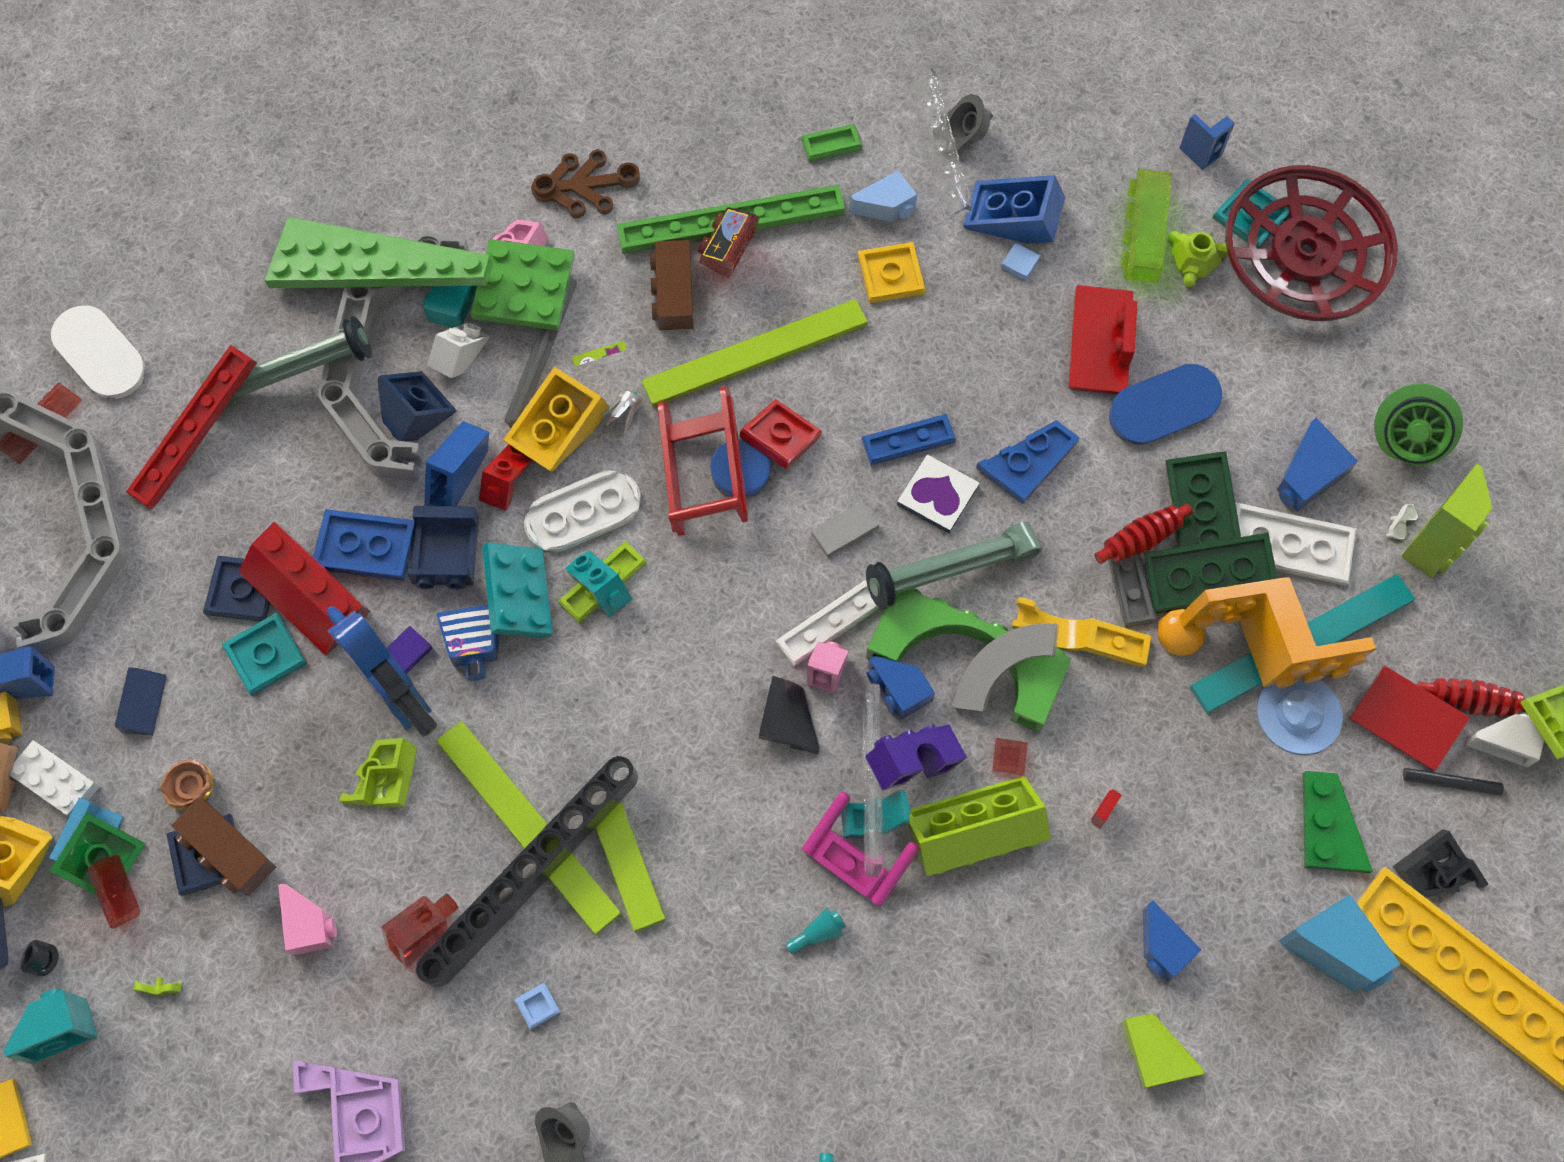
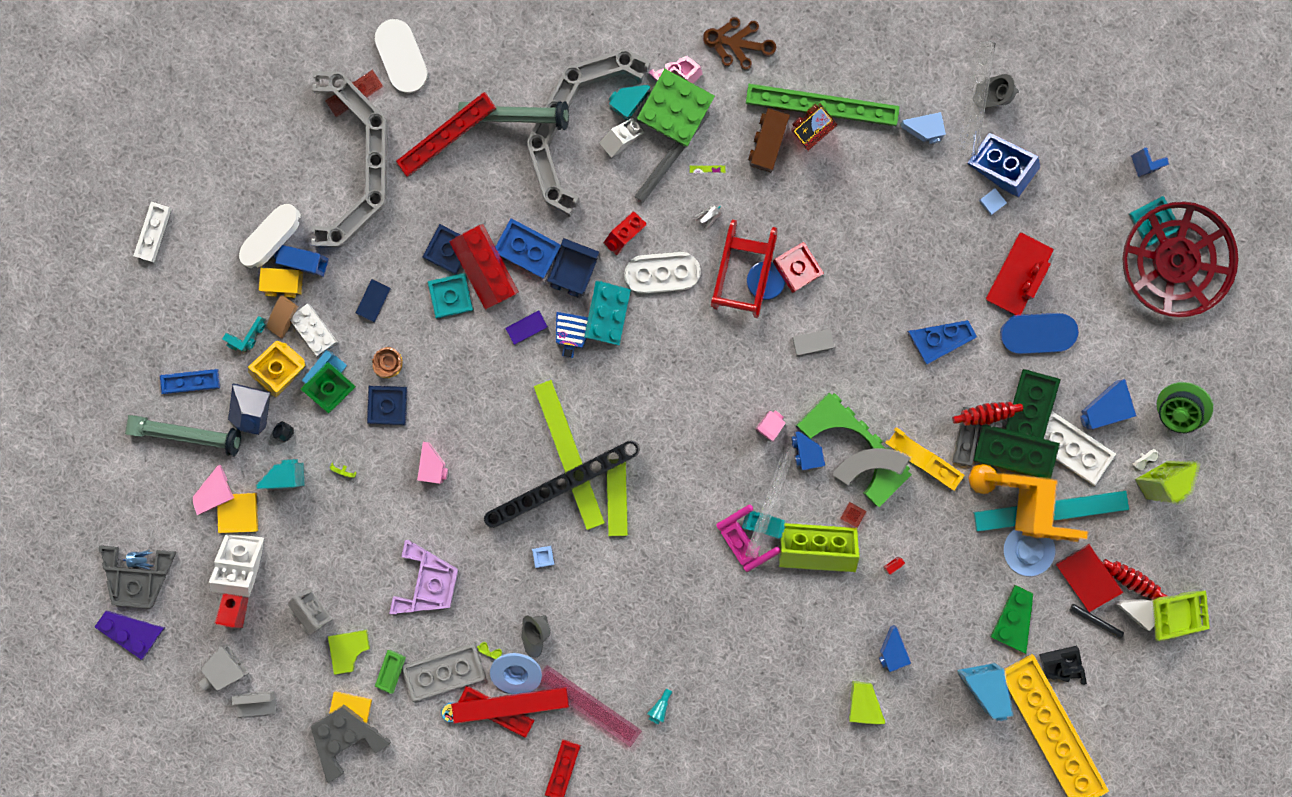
camera: 25 degrees right, 20 degrees up
(114, 890) = (332, 410): clear red slope -> none
(222, 848) = (398, 408): reddish brown brick -> none
(337, 256) = (569, 48): bright green wing -> none
(381, 670) = (514, 341): blue piece -> none
(389, 764) = (502, 390): lime slope -> none
(409, 935) = (485, 496): clear red torso -> none
(411, 405) = (582, 165): dark blue slope -> none
(455, 465) = (596, 218): blue slope -> none
(556, 420) = (665, 210): yellow slope -> none
(579, 600) = (659, 322): lime tile -> none
(601, 581) = (656, 322): teal bracket -> none
(754, 352) = (803, 204): lime tile -> none
(788, 717) = (737, 446): black slope -> none
(822, 928) = (712, 572): teal cone -> none
(827, 624) = (785, 396): white tile -> none
(831, 143) = (907, 70): bright green tile -> none
(891, 272) = (908, 179): yellow tile -> none
(902, 758) = (787, 501): dark purple arch -> none
(908, 439) = (874, 297): blue tile -> none
(938, 494) = (877, 339): tile -> none
(1014, 544) = (908, 390): sand green piece -> none
(1147, 225) = (1083, 207): clear neon green brick -> none
(1196, 254) = (1104, 238): lime rock -> none

